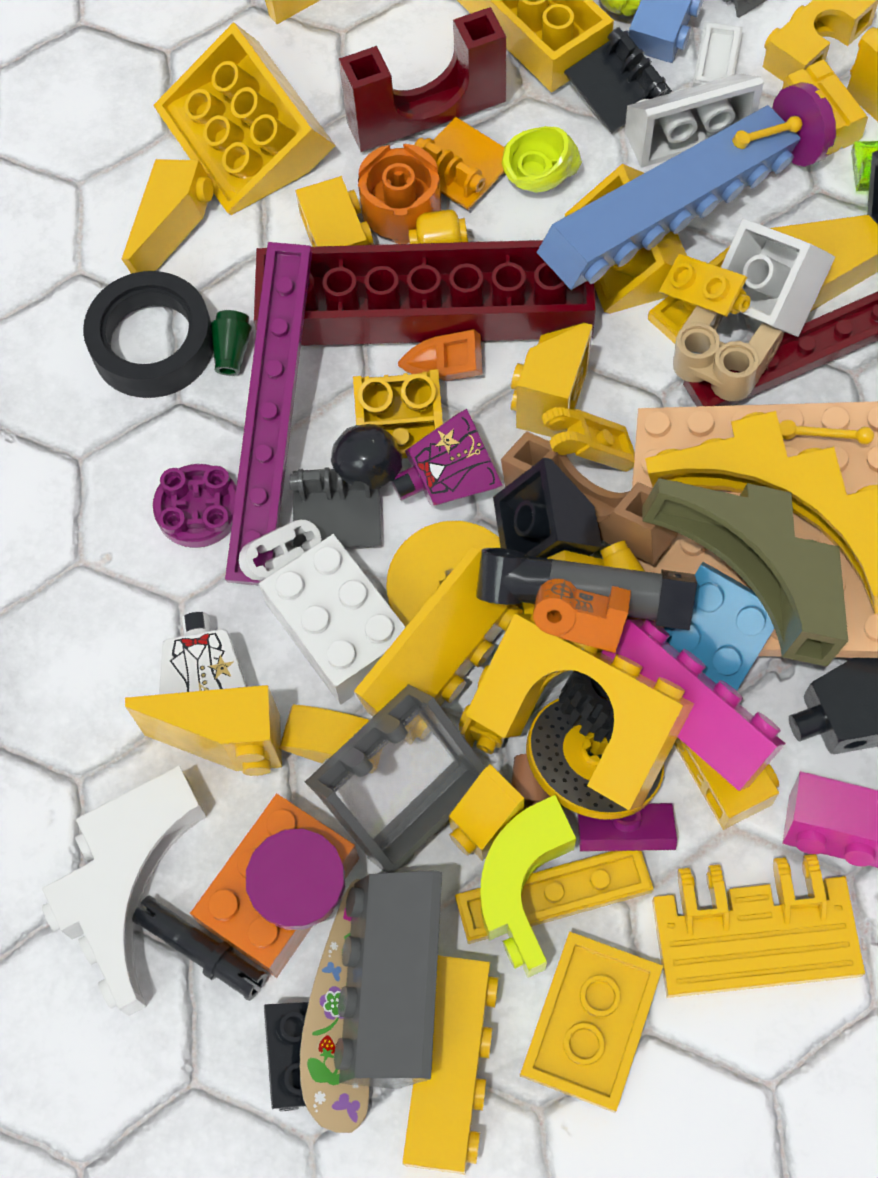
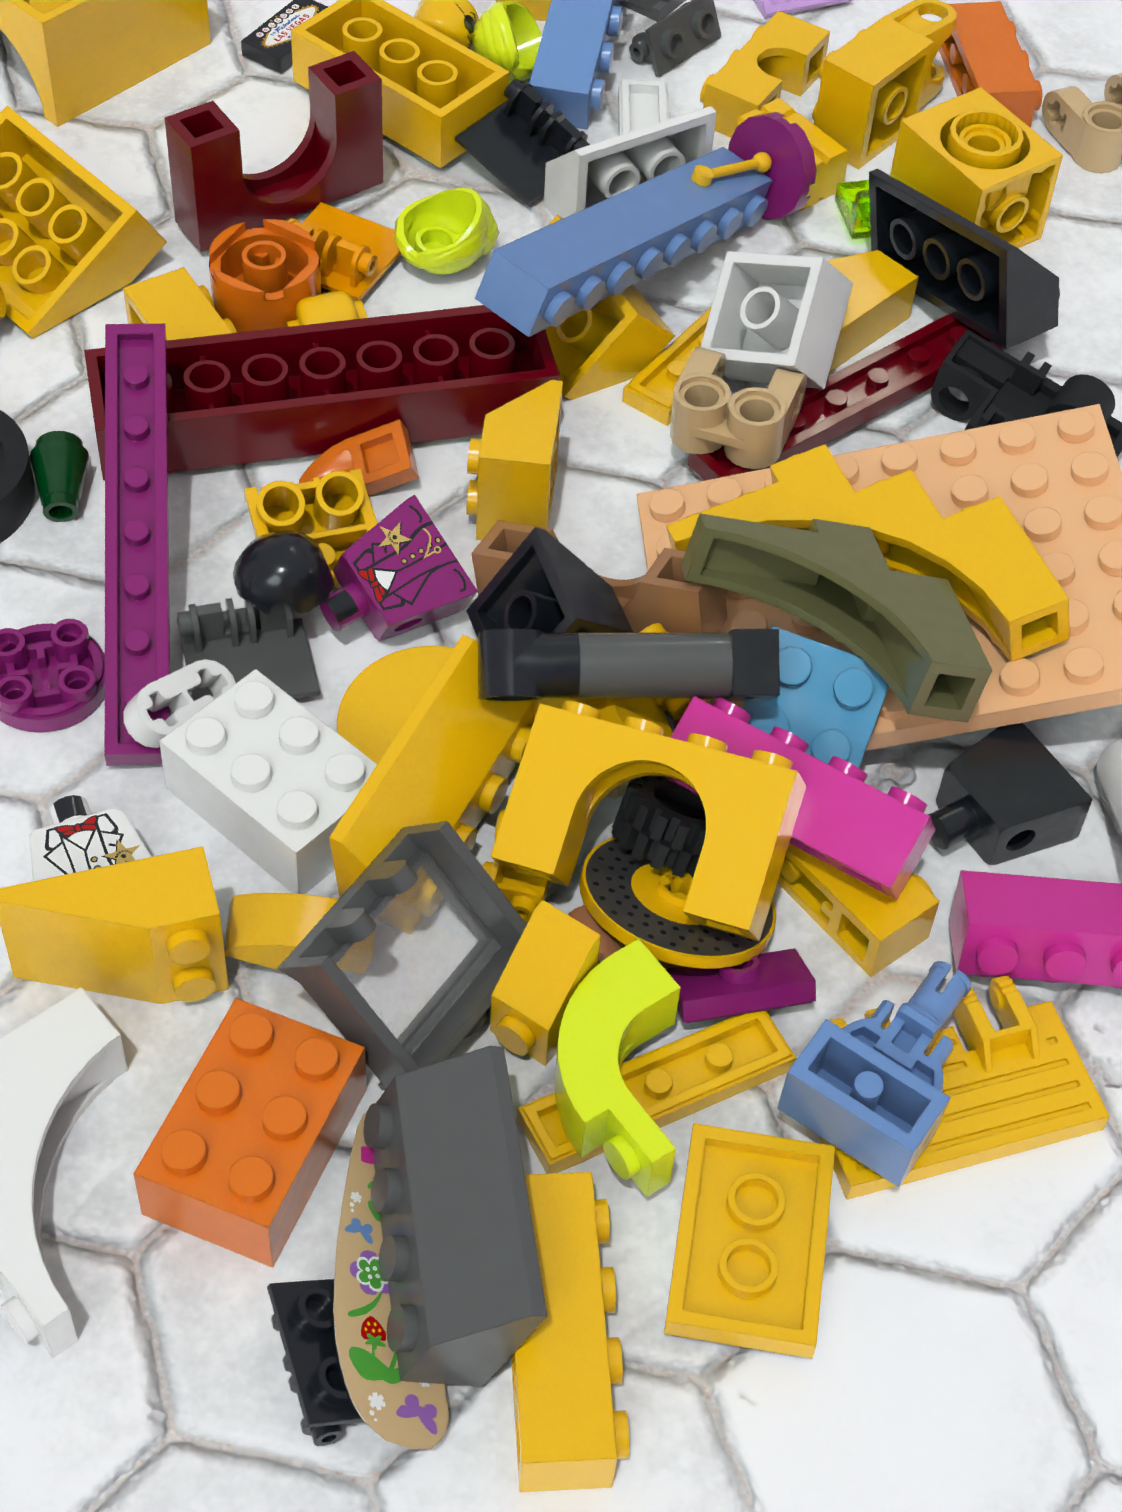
camera: 20 degrees left, 15 degrees down
(214, 958) = (177, 1247): black pin -> none
(295, 879) = (288, 1094): magenta tile -> none
(581, 614) = (634, 689): orange leg -> none
(590, 437) = (581, 519): yellow hinge -> none
(698, 933) = (876, 1086): none -> medium blue brick
(706, 286) = (698, 331): yellow hinge -> none
(789, 430) = (942, 465): yellow hinge -> none

